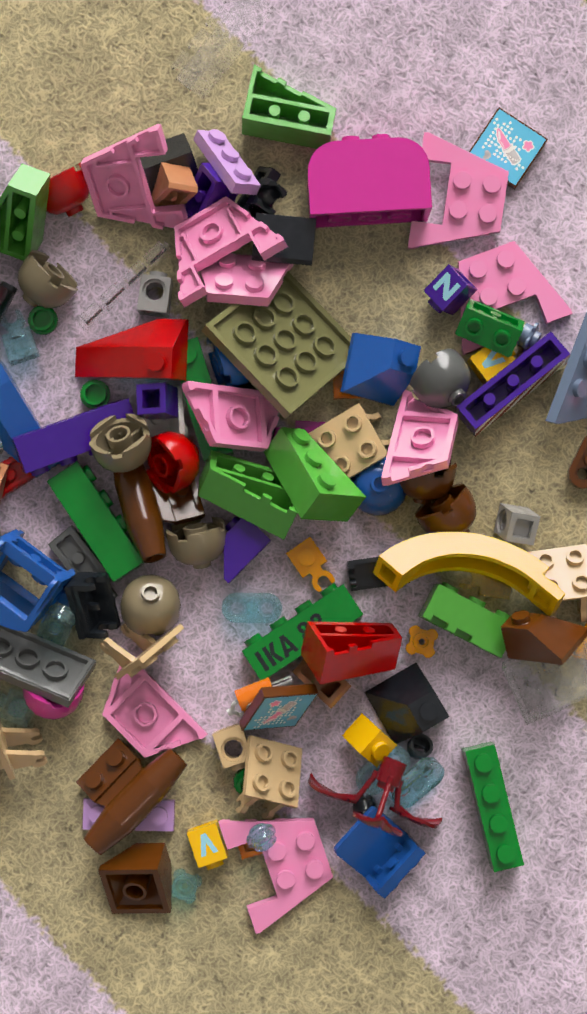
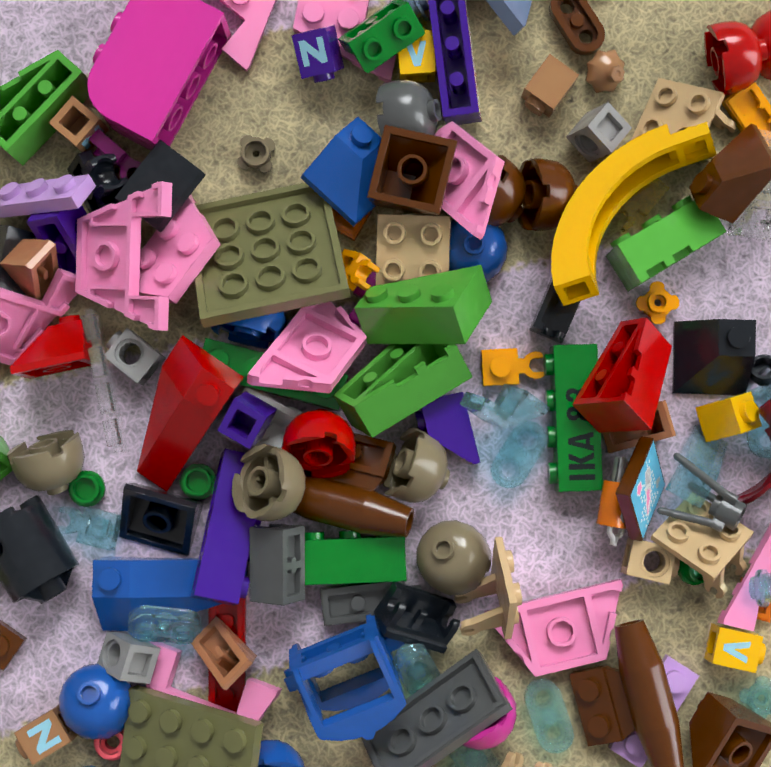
camera: 60 degrees left, 0 degrees up
(53, 383) = (159, 518): none -> black slope
(70, 483) = (277, 564): none -> dark grey hinge
(80, 740) = (549, 714): none -> clear light blue plate
(125, 238) = (55, 350): none -> red slope
(279, 581) = (509, 409): none -> clear light blue slope
(290, 184) = (106, 145): none -> magenta plate
(293, 155) = (77, 124): none -> medium nougat brick
(301, 774) = (724, 507): none -> dark grey plant
(311, 412) = (357, 269): none -> light orange plate
(319, 740) = (707, 457): none -> clear light blue slope
(355, 283) = (249, 146): none -> dark tan plate
(402, 407) = (411, 171): none -> reddish brown slope
(528, 469) = (548, 87): none -> medium nougat brick
(566, 502) = (605, 71): none -> medium nougat piece

